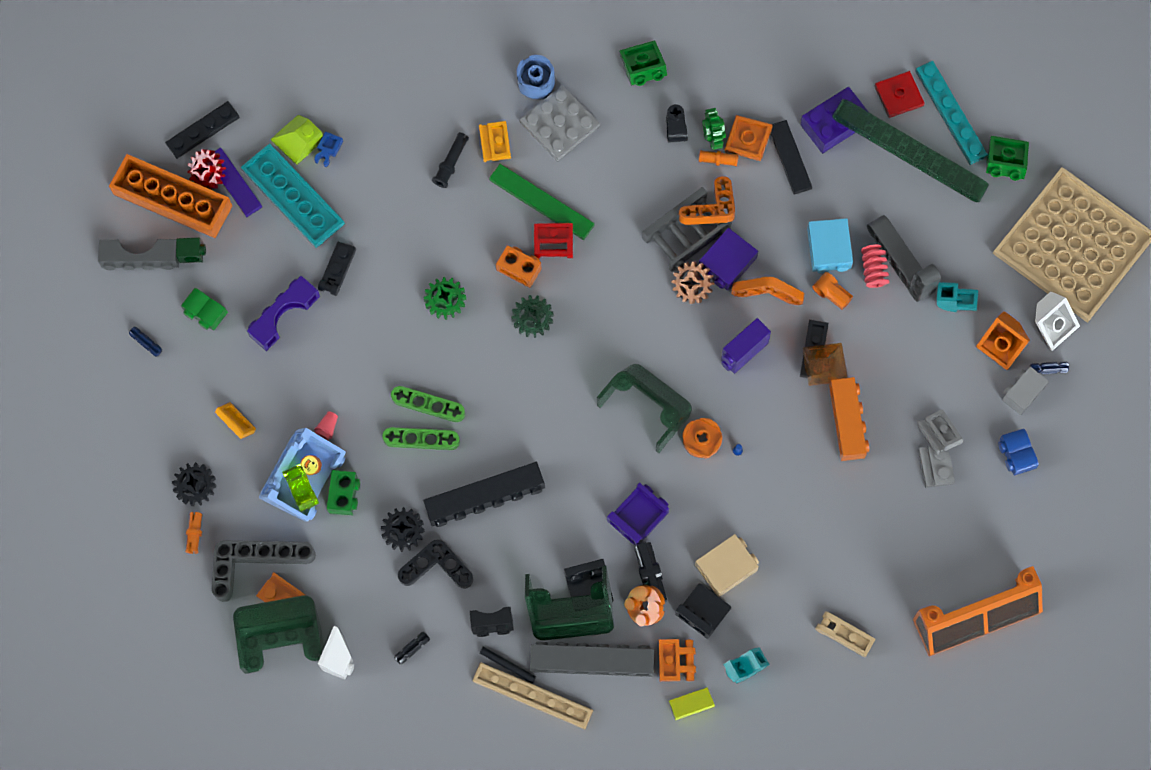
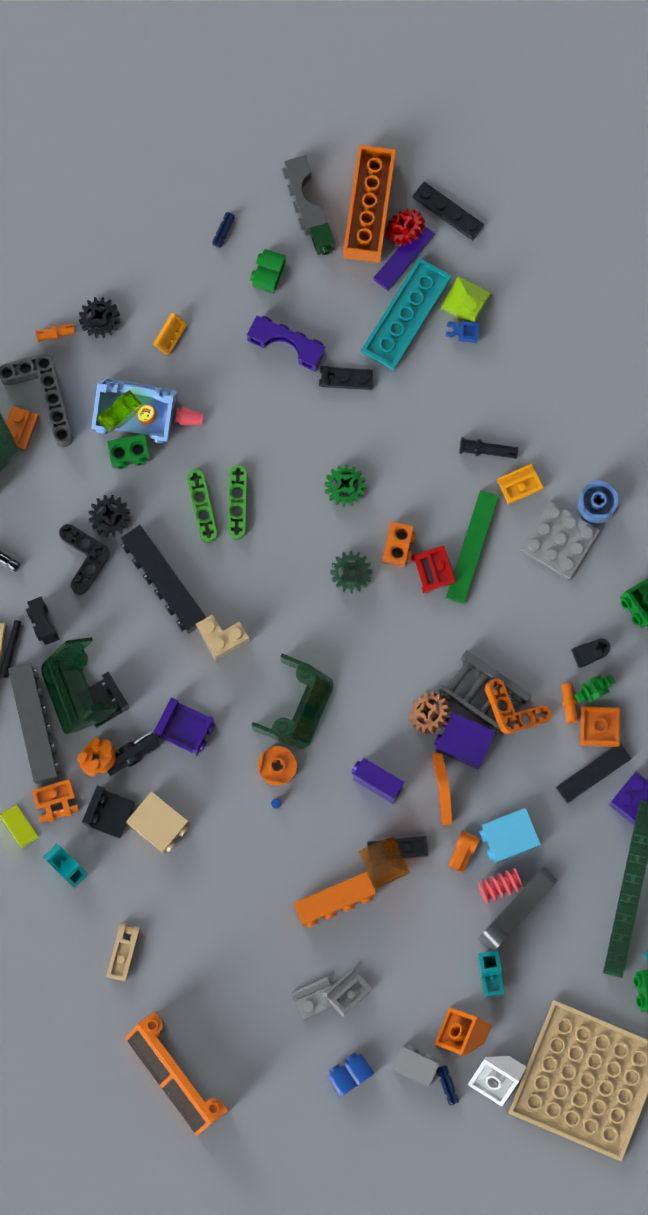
camera: 70 degrees right, 5 degrees up
(563, 457) = (222, 642): none -> tan brick

